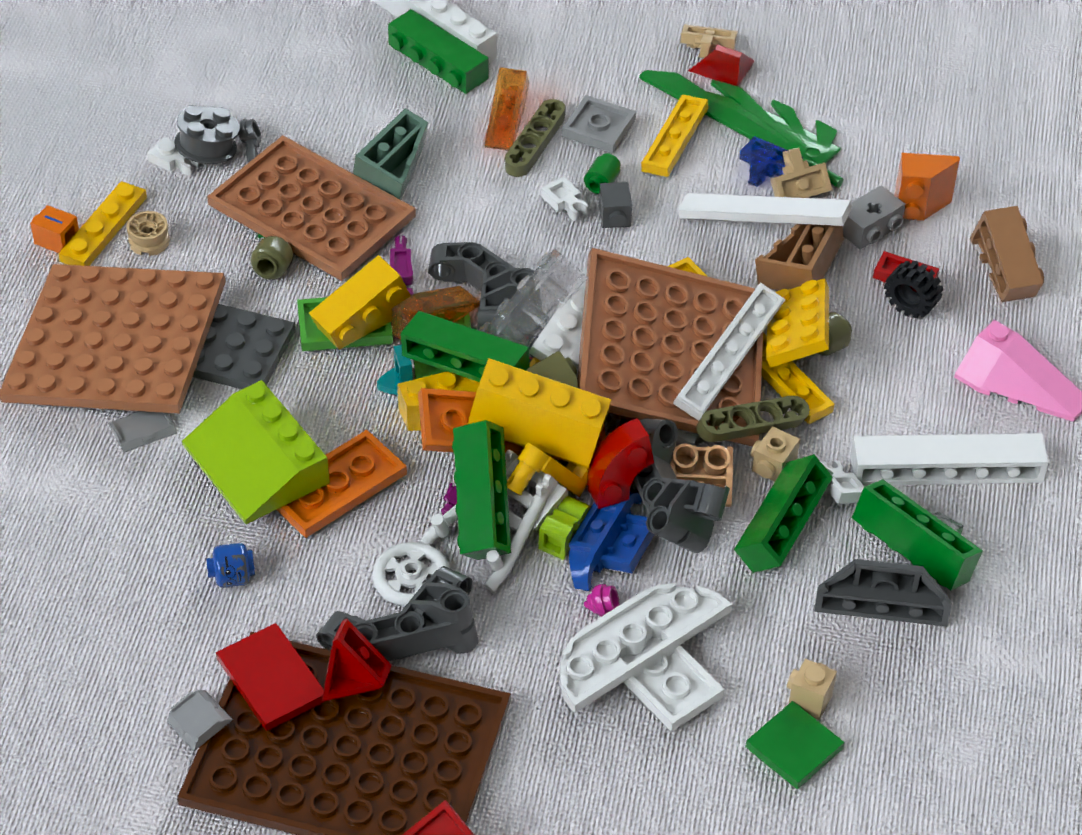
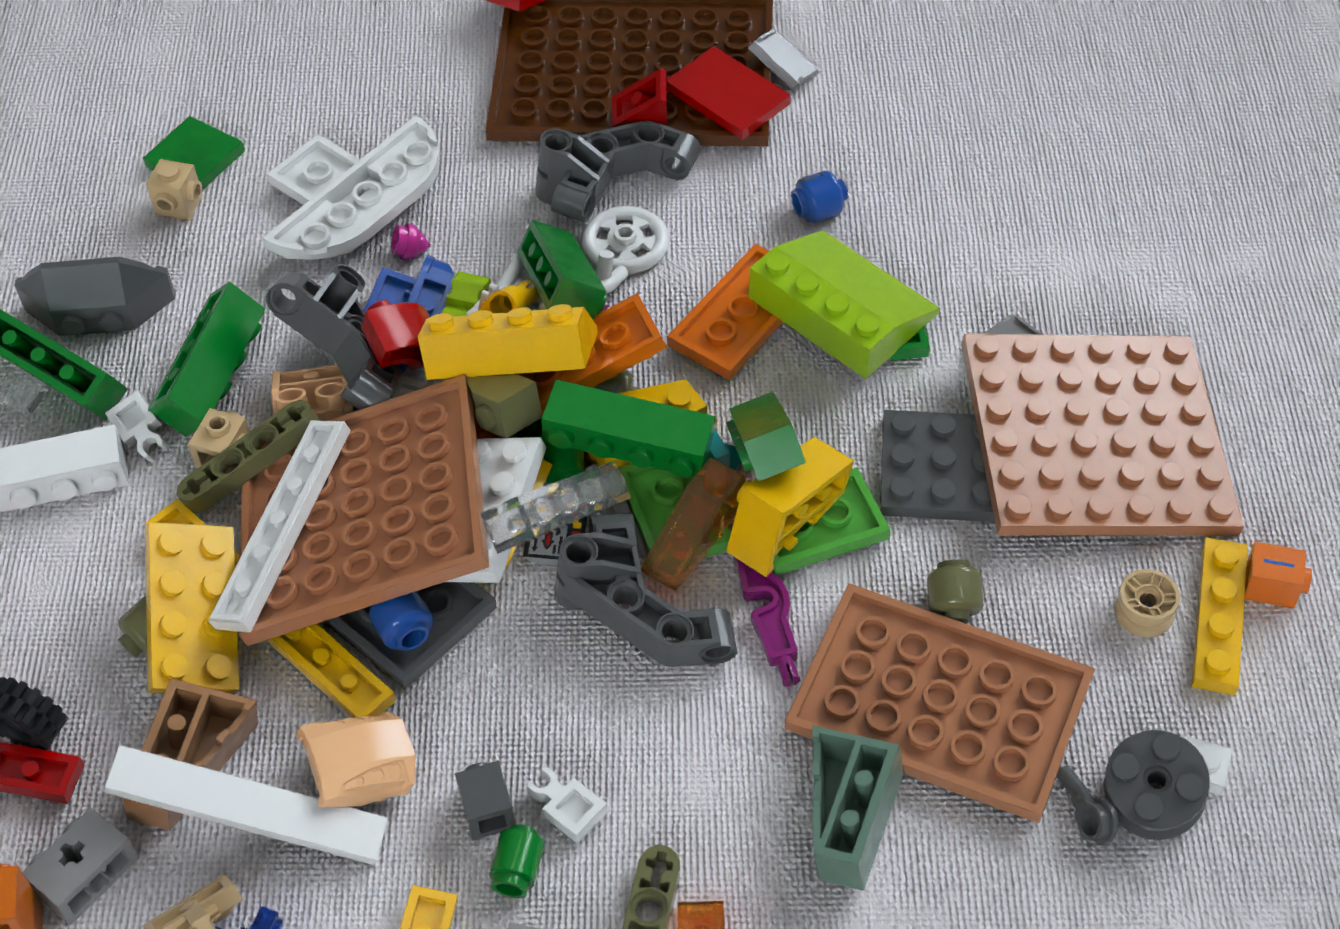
camera: 170 degrees right, 5 degrees up
(366, 332) = (764, 437): none -> green brick
(693, 231) = (359, 759): none -> light nougat slope

